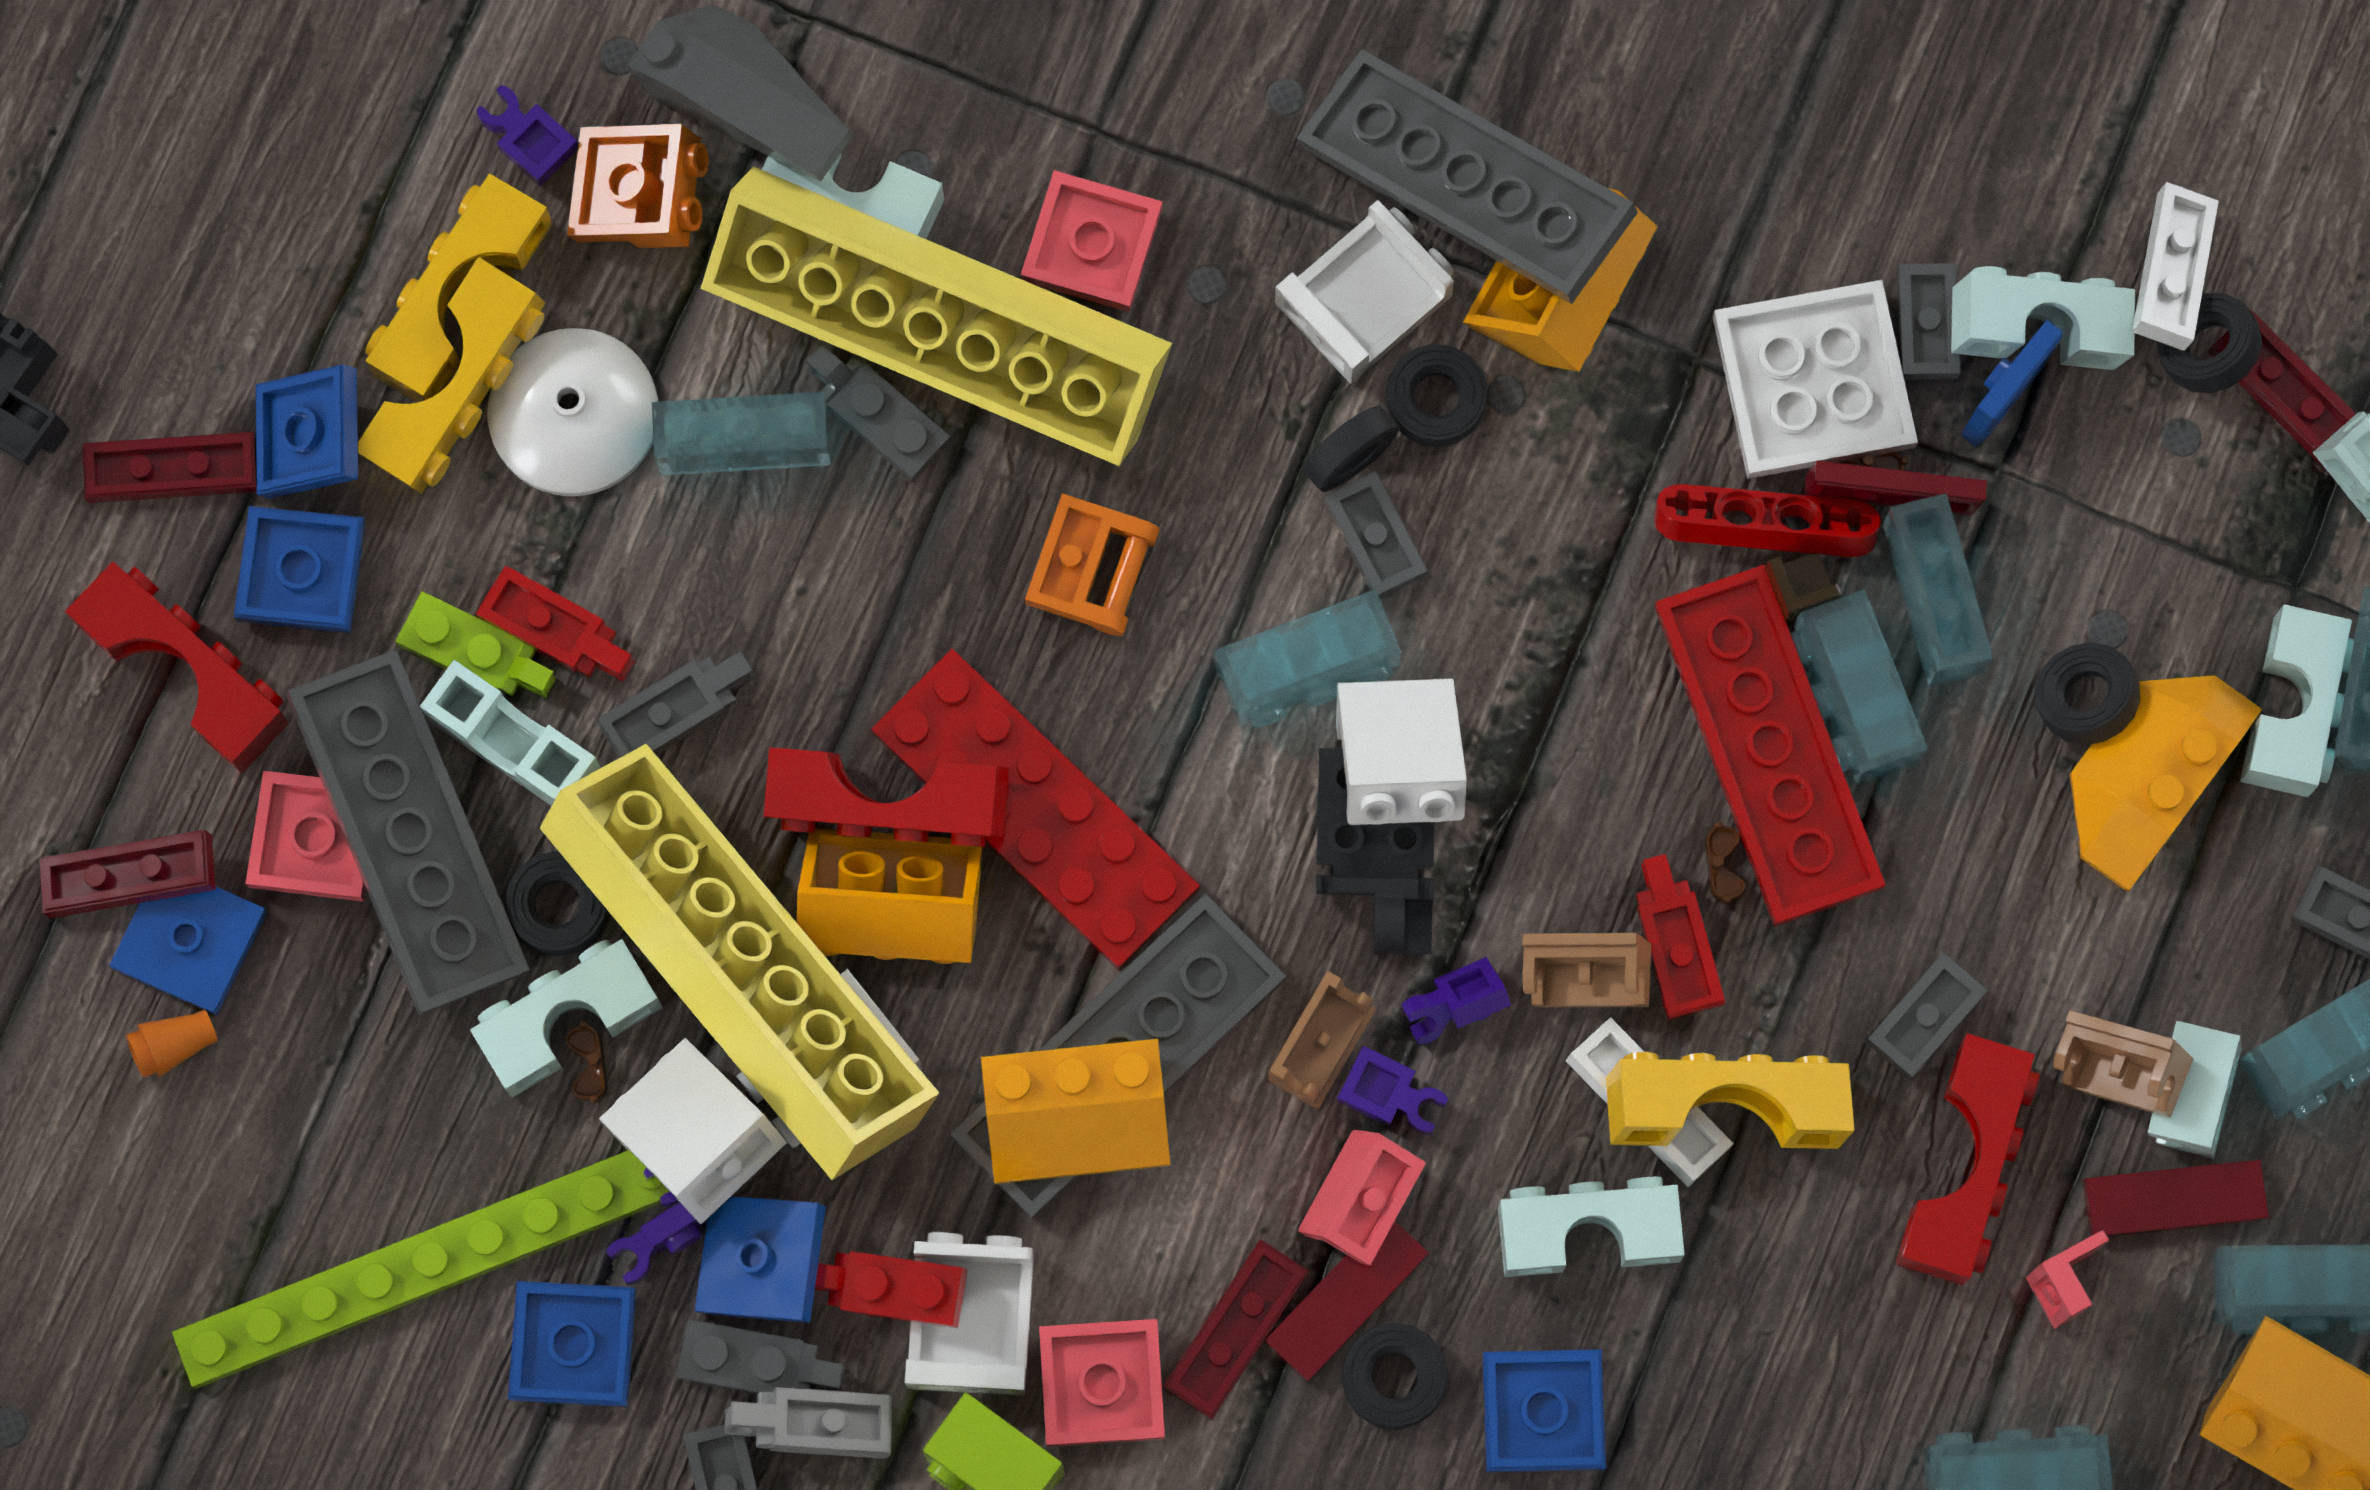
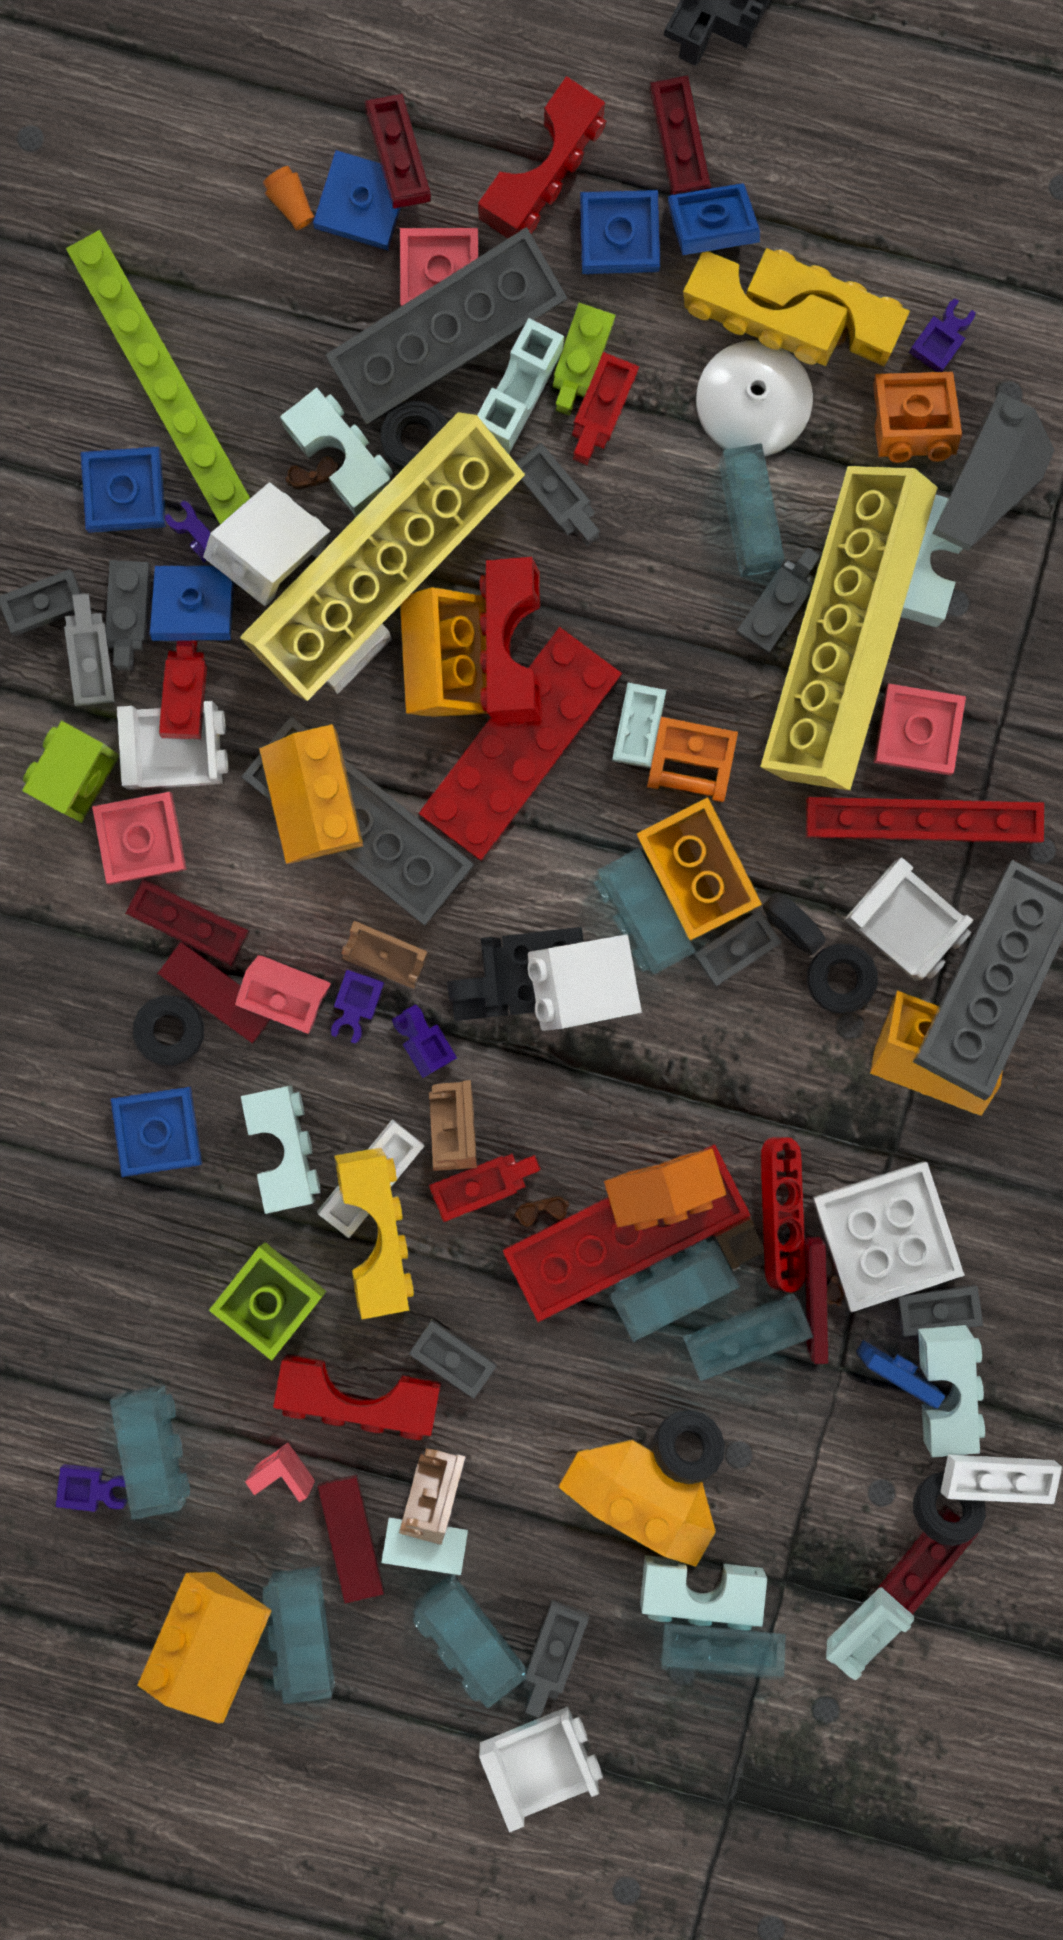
camera: 80 degrees right, 10 degrees up
(1032, 634) = (639, 725): none -> light aqua plate
(1223, 252) = (924, 820): none -> red plate
(1255, 568) = (699, 869): none -> light orange slope
(1715, 672) = (665, 1190): none -> orange brick
(1812, 1268) = (267, 1300): none -> lime brick

